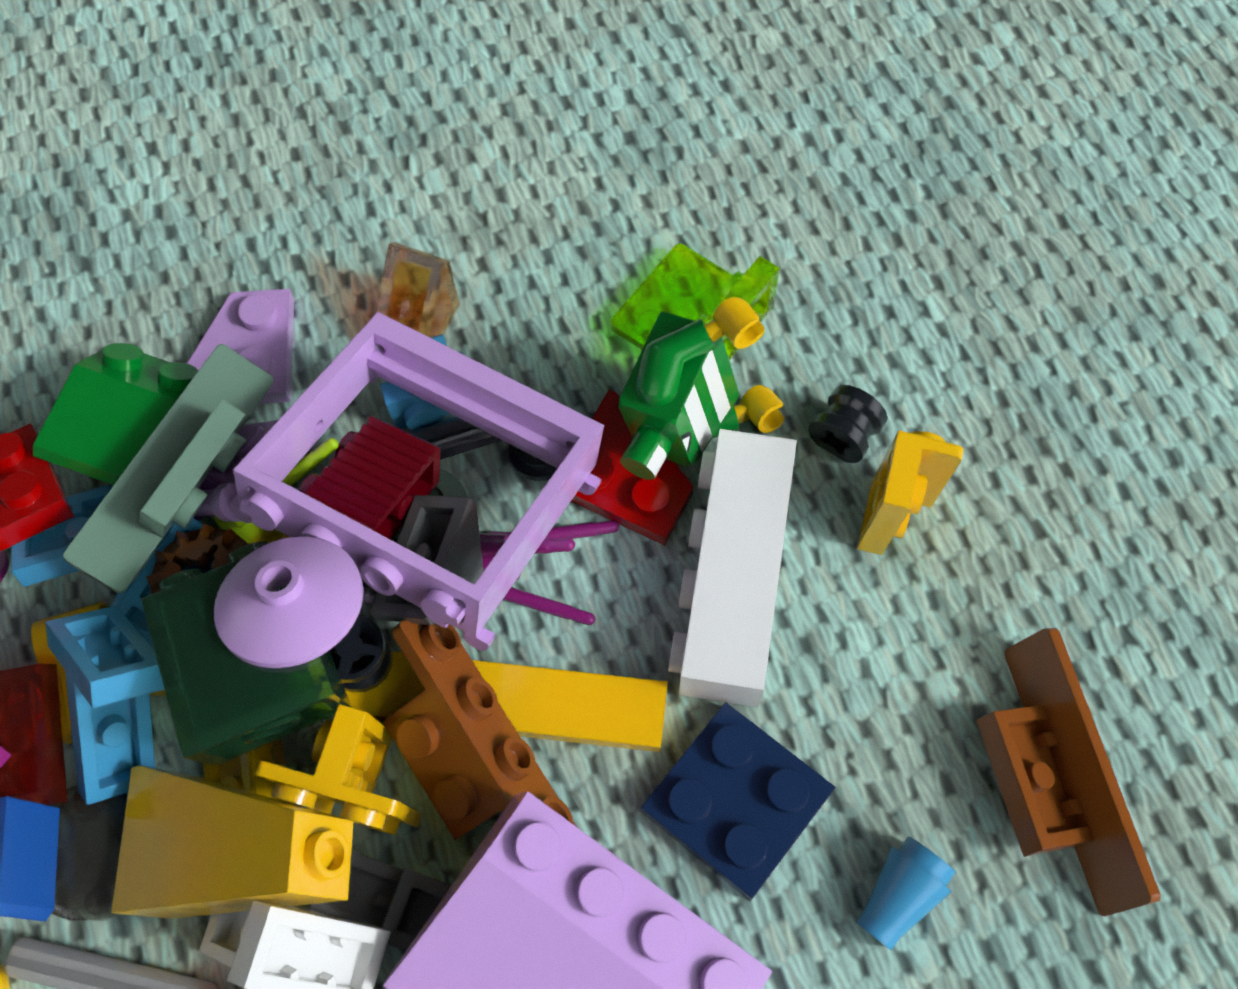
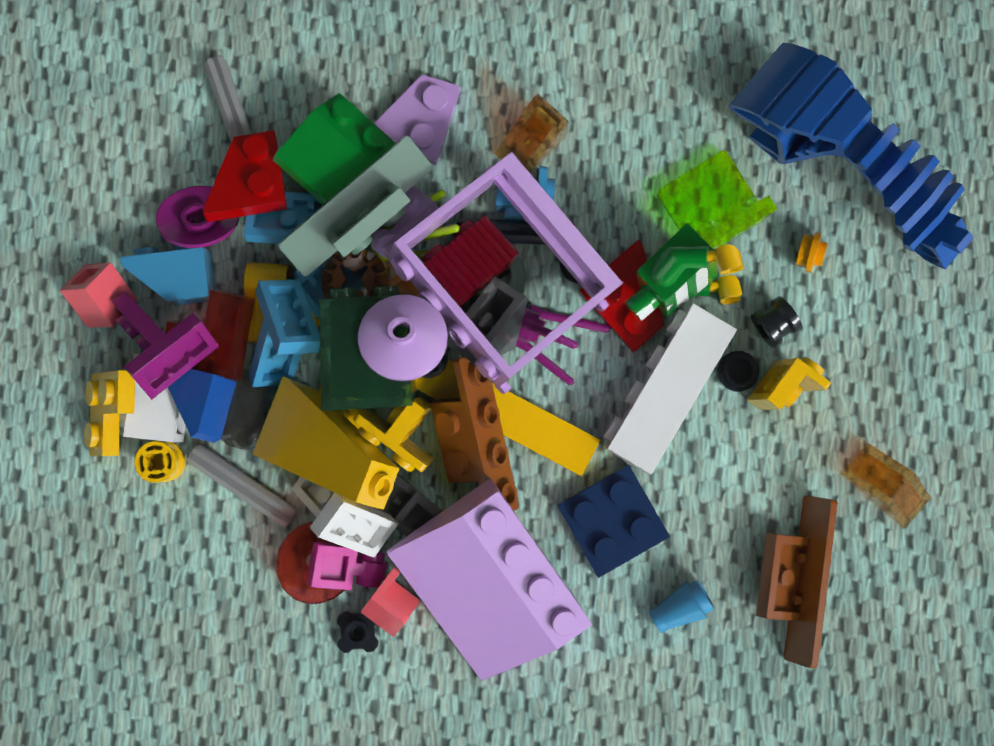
camera: 25 degrees right, 20 degrees up
(774, 131) = (812, 110): none -> blue piece
(825, 511) = (738, 371): none -> black plate
(852, 321) = (811, 251): none -> light orange plate
(1117, 584) = (887, 484): none -> clear orange slope

